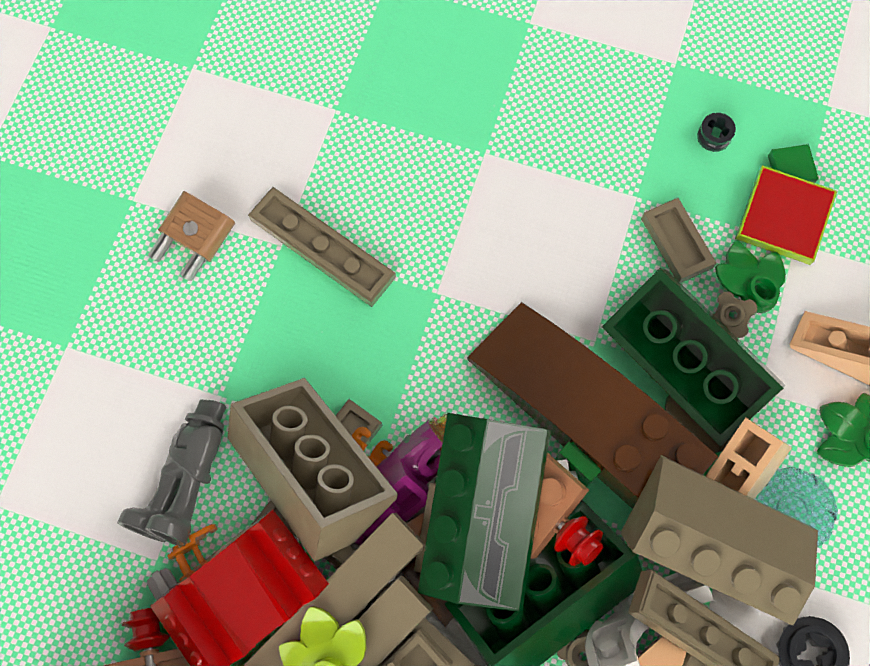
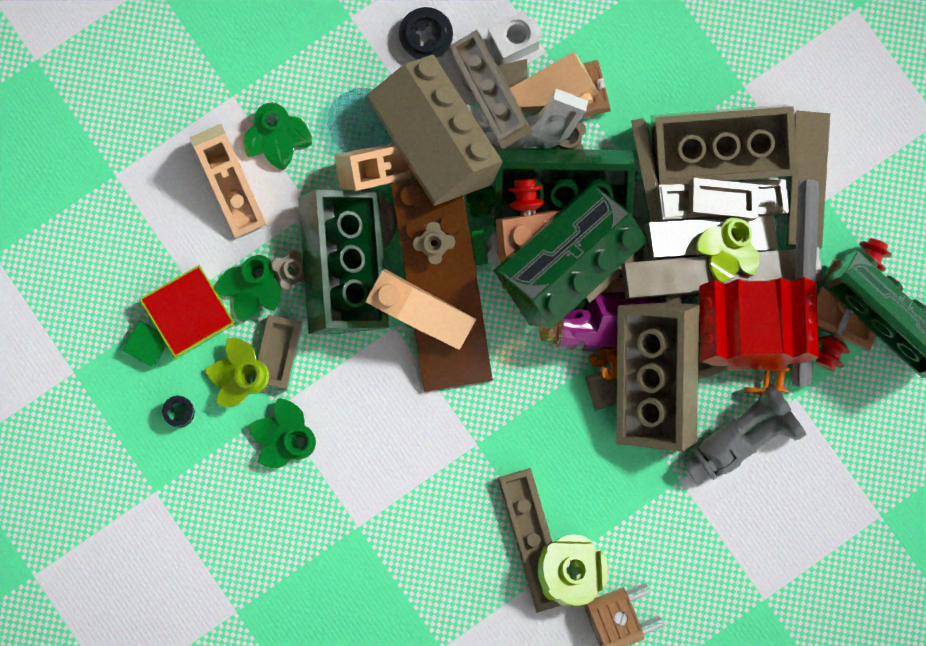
camera: 150 degrees left, 10 degrees up
(286, 239) = (554, 578): none -> plate
(592, 351) = (420, 309): none -> light nougat slope
(613, 516) = (481, 201): none -> green plant
(616, 173) = (278, 433): none -> green plate
(626, 433) = (434, 232): none -> dark tan plate
(696, 193) = (235, 371): none -> lime plate

